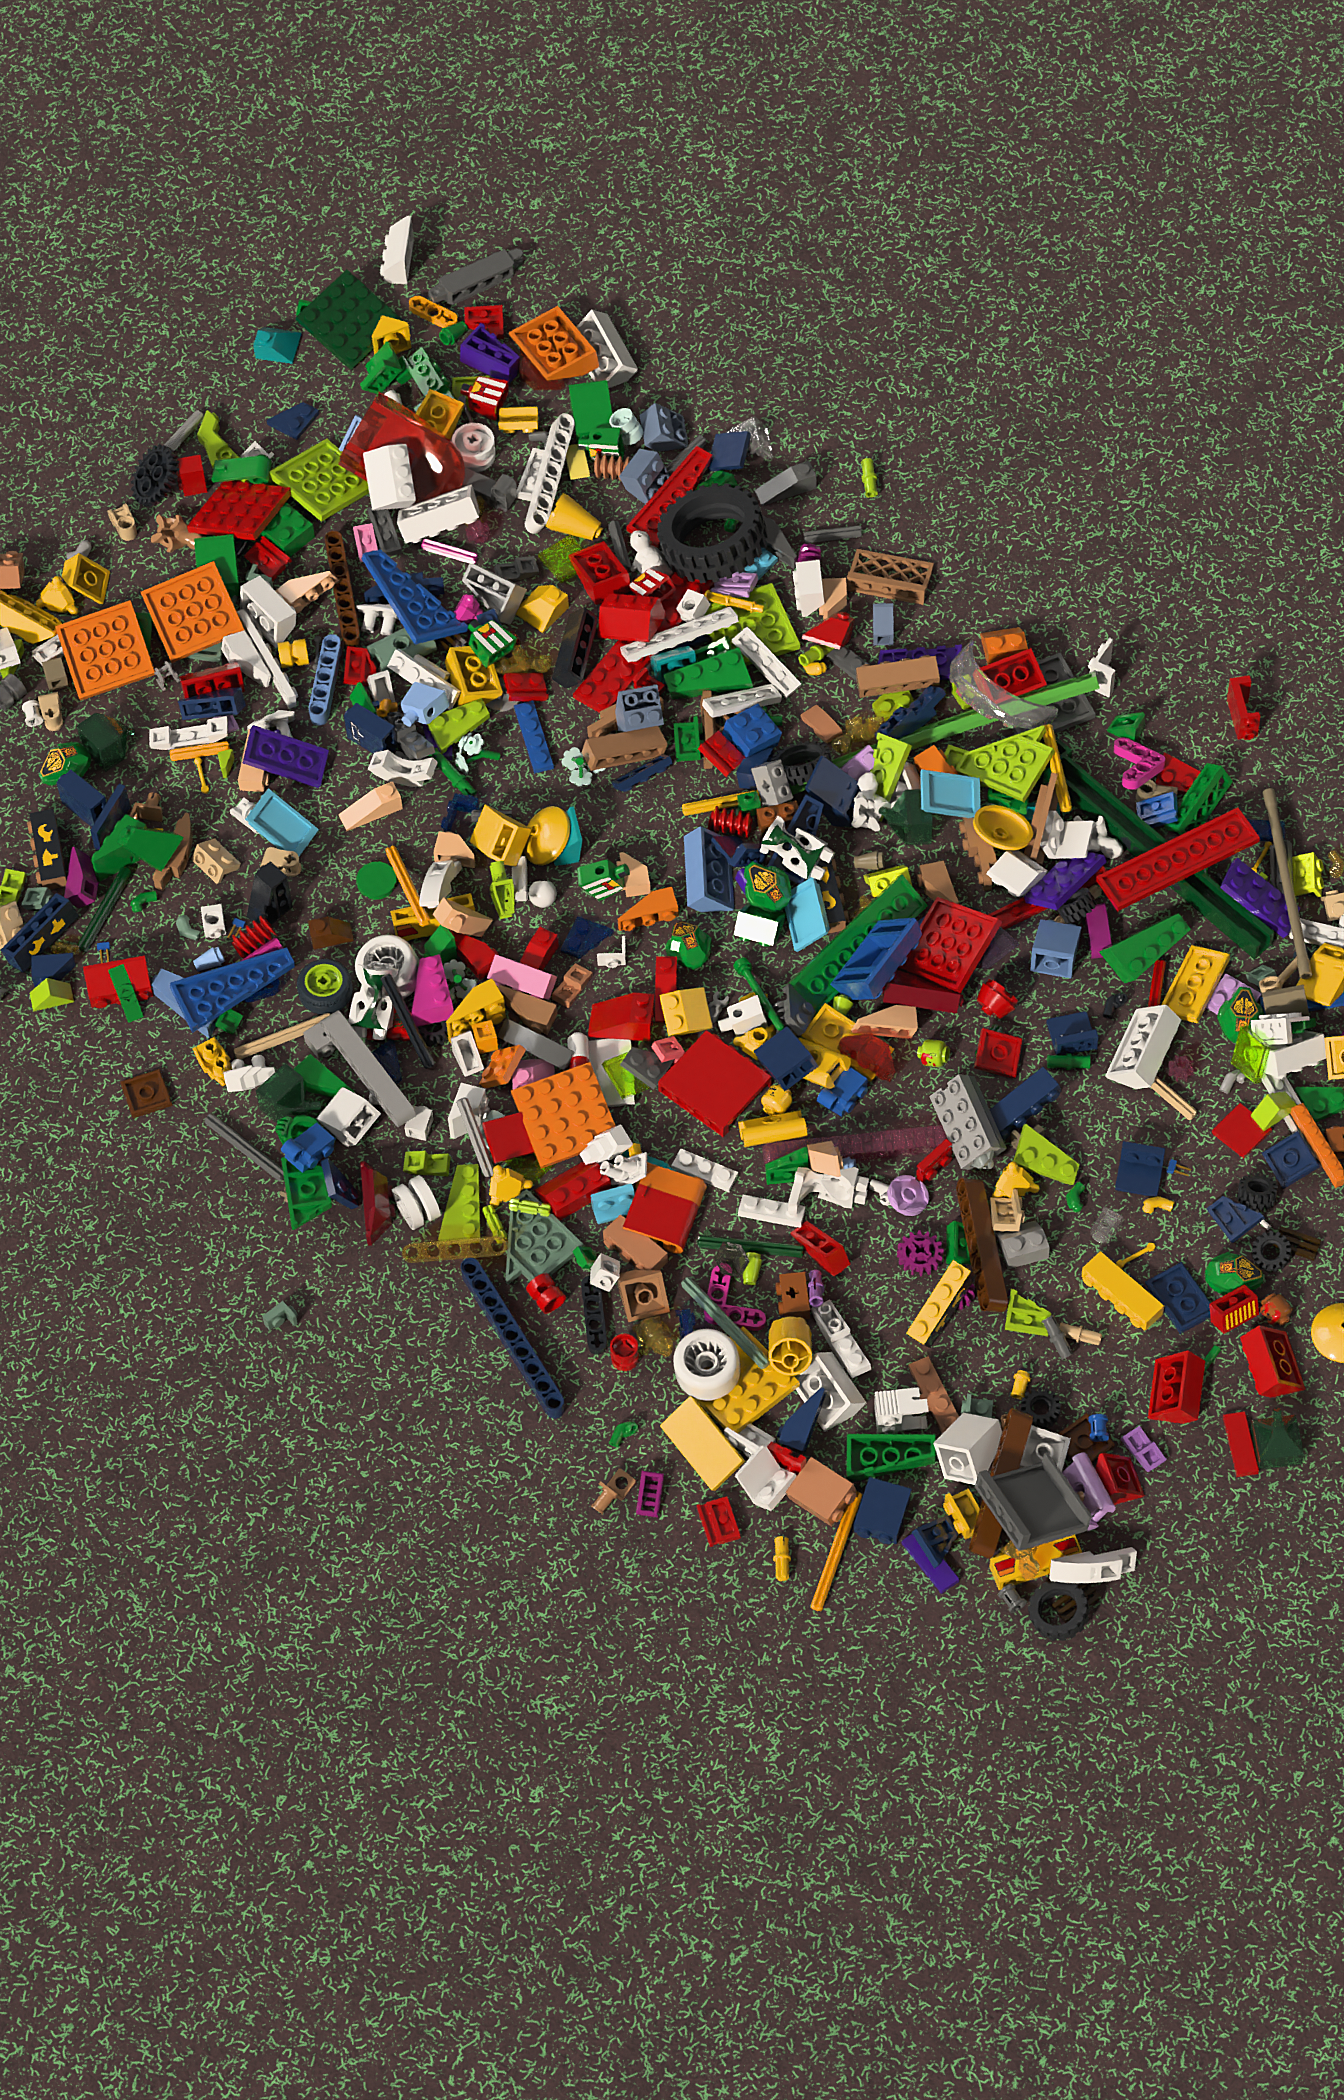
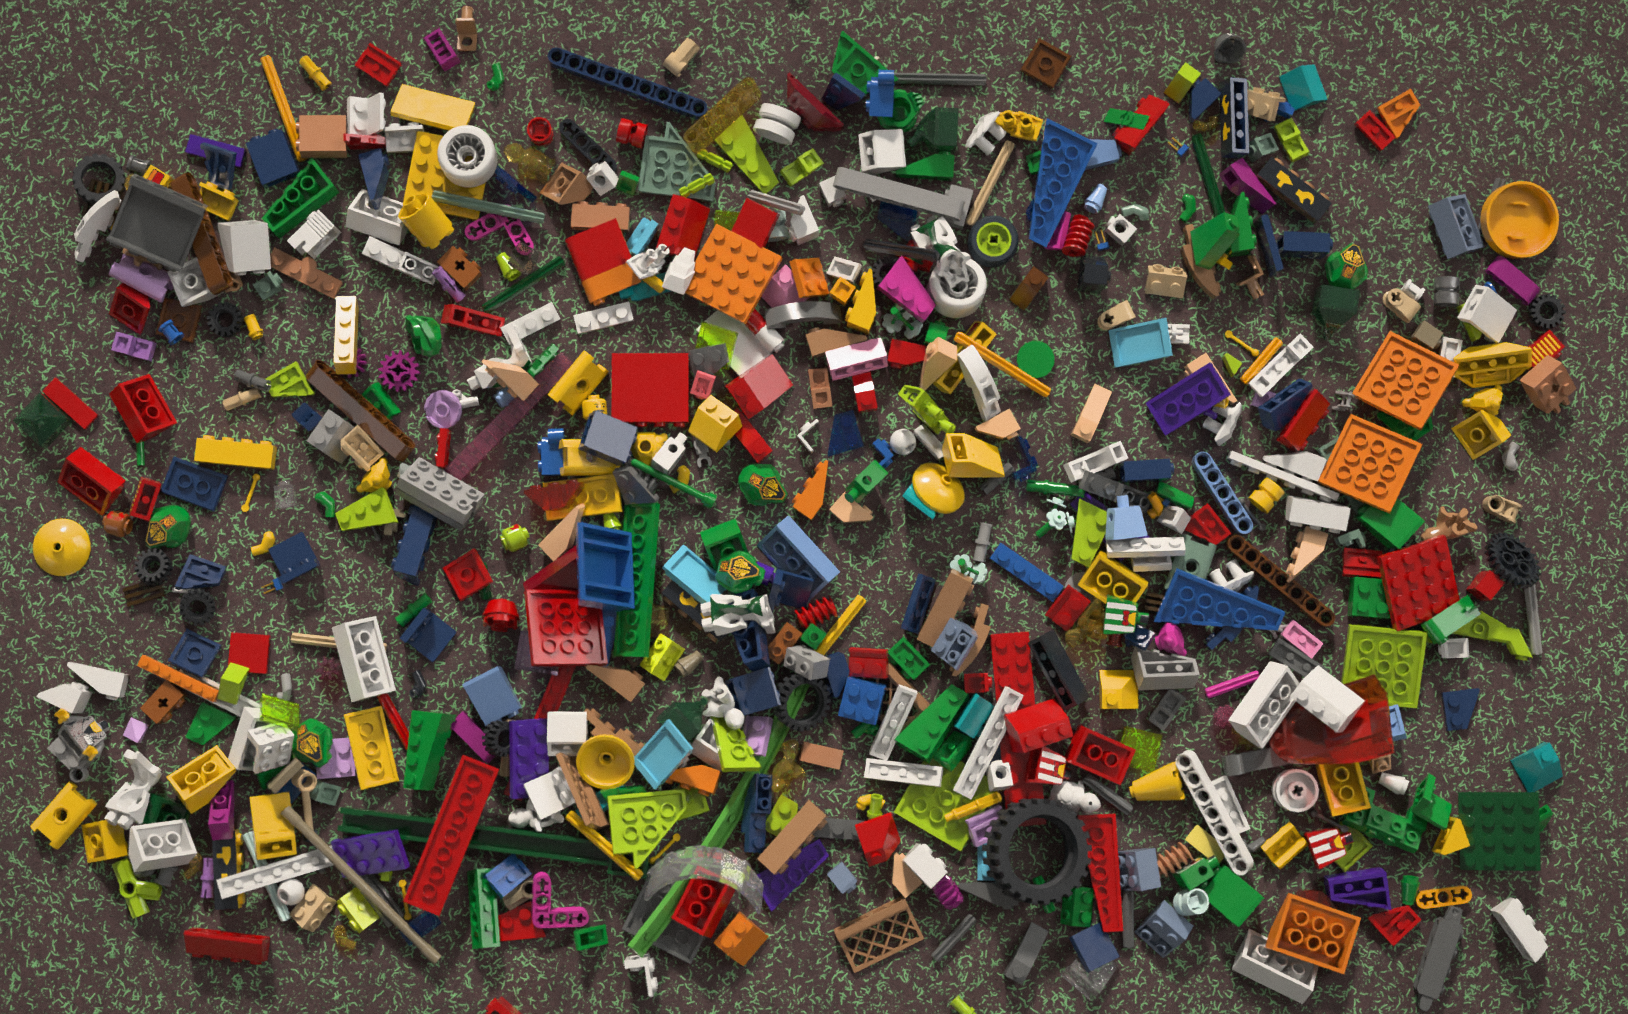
camera: 135 degrees right, 25 degrees up
(452, 1324) = (680, 58): none -> tan piece
(506, 1185) = (729, 192): yellow rock -> none
(548, 780) = (982, 542): none -> light grey pin
(567, 891) = (883, 448): none -> blue bracket
(873, 1260) = (424, 334): none -> green helmet
(1033, 1271) = (306, 417): none -> dark blue bracket

